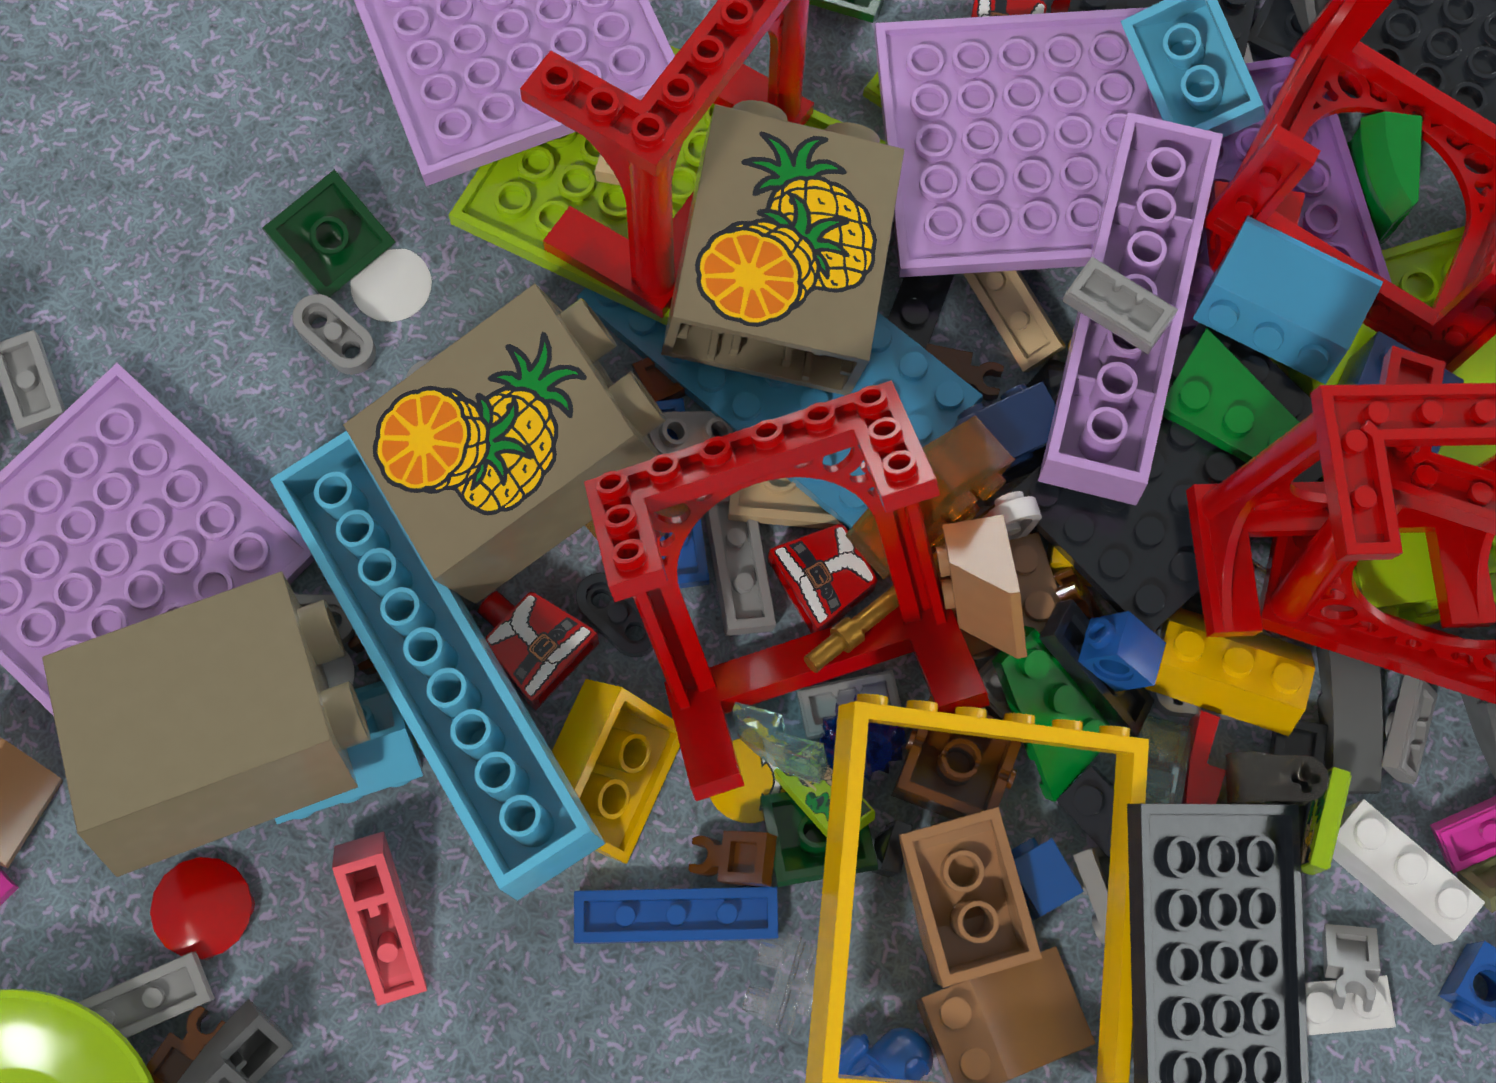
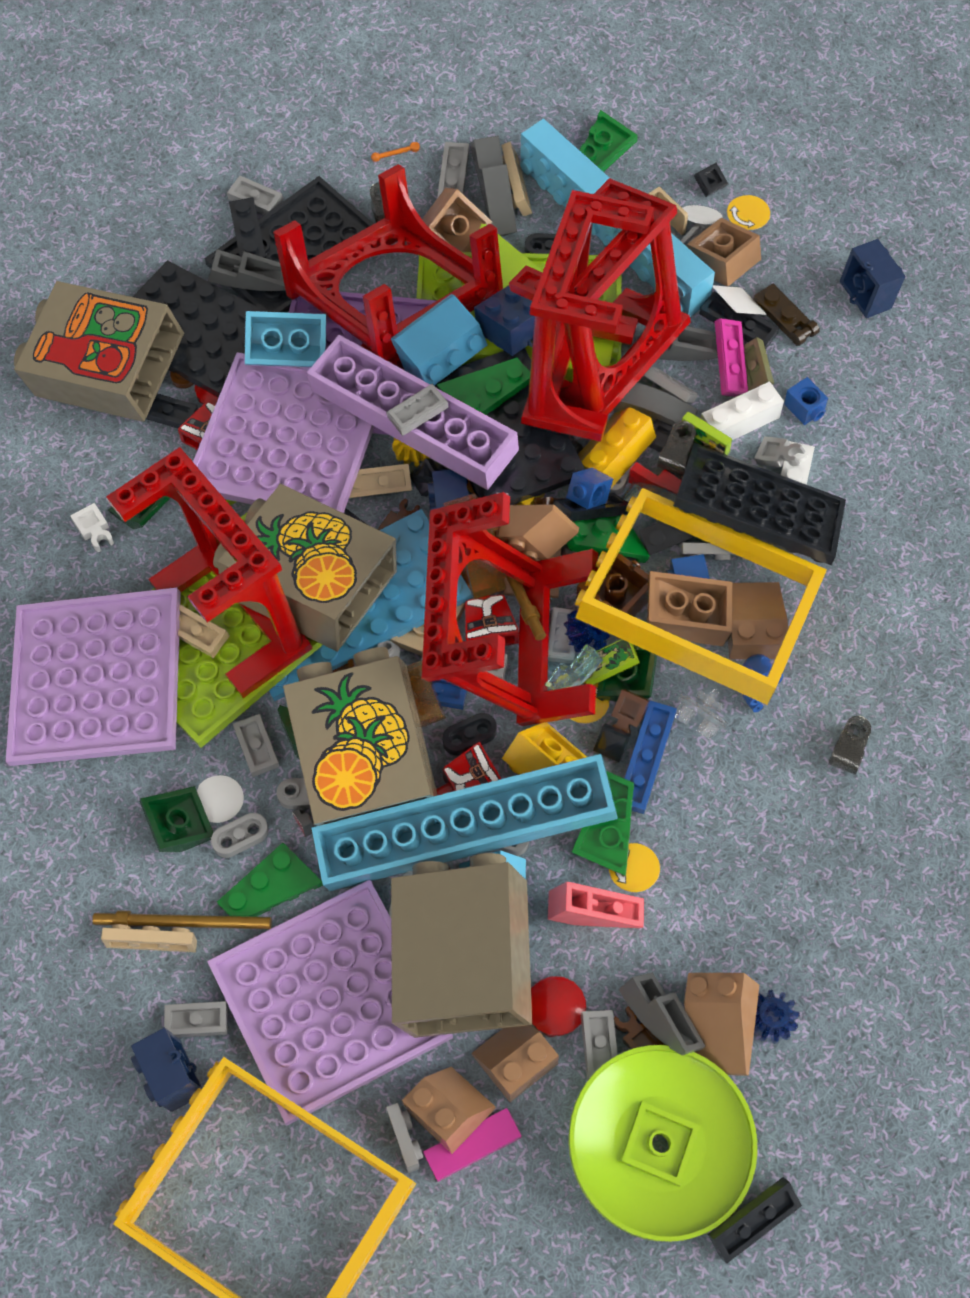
camera: 65 degrees left, 10 degrees down
(81, 887) = (516, 1059): none -> medium nougat slope
(130, 271) = (149, 938): none -> tan plate
(155, 229) = (201, 921): none -> pearl gold bar
(272, 407) = (270, 883): none -> green wing
(479, 958) = (642, 869): none -> yellow sticker
(484, 296) = (256, 745): none -> light grey plate
(490, 914) = (609, 841): none -> green wing
(680, 848) = (612, 742): none -> black tile
(1388, 167) = (371, 272): green slope -> none

